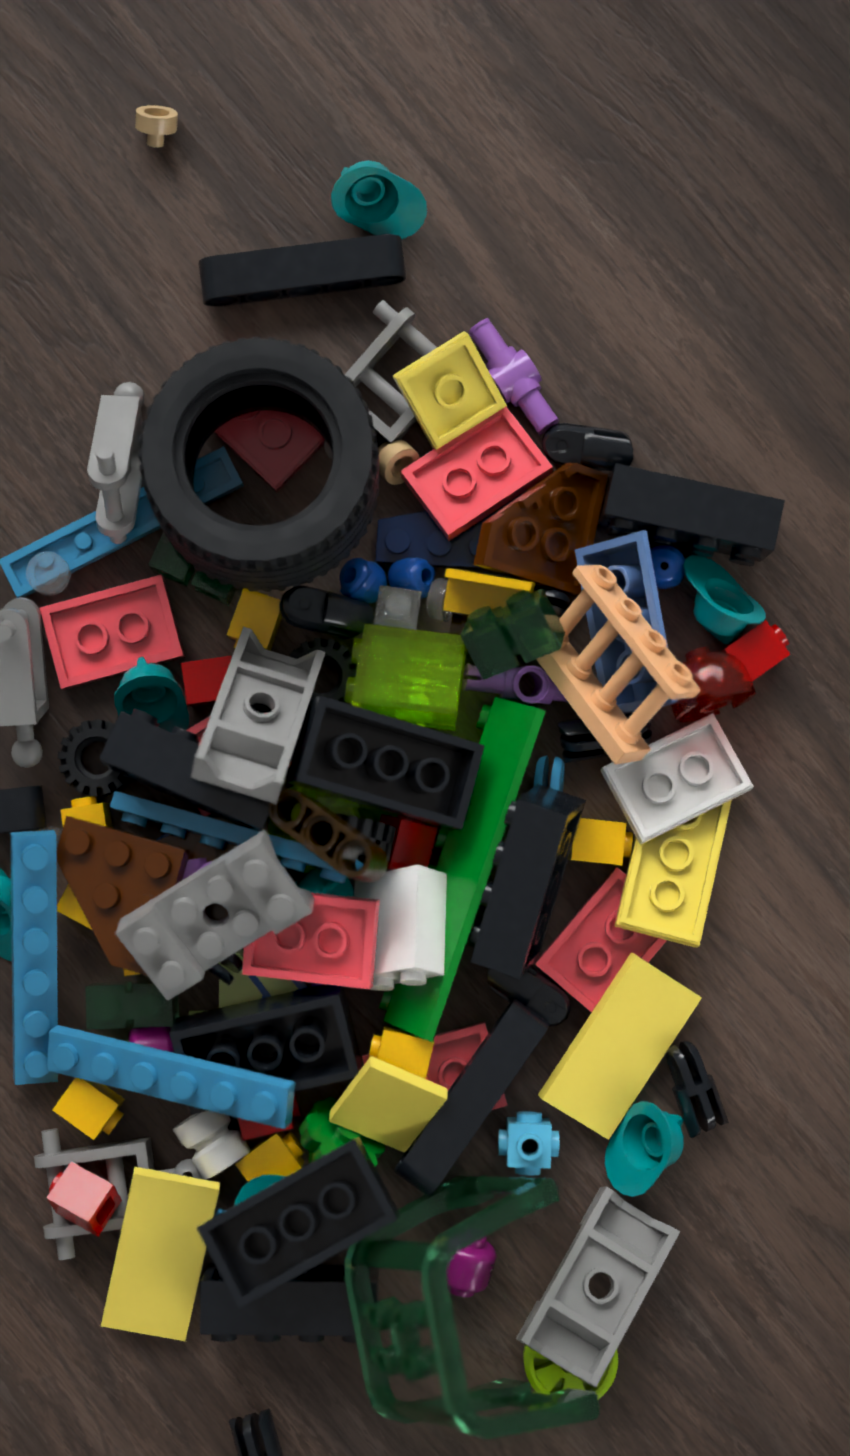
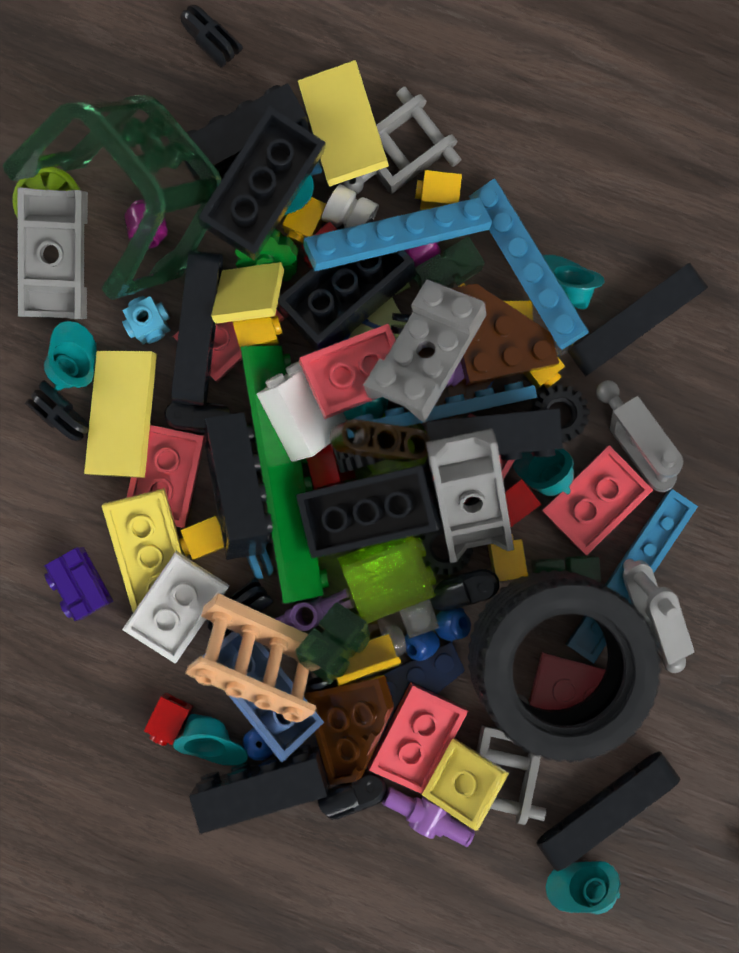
camera: 150 degrees right, 0 degrees up
(48, 573) = (660, 515): clear tile -> none
(83, 1198) = (410, 130): brick -> none
(394, 458) = (476, 717): tan tile -> none
(721, 682) = (180, 689): clear red cylinder -> none
(778, 869) = (77, 584): none -> dark purple brick

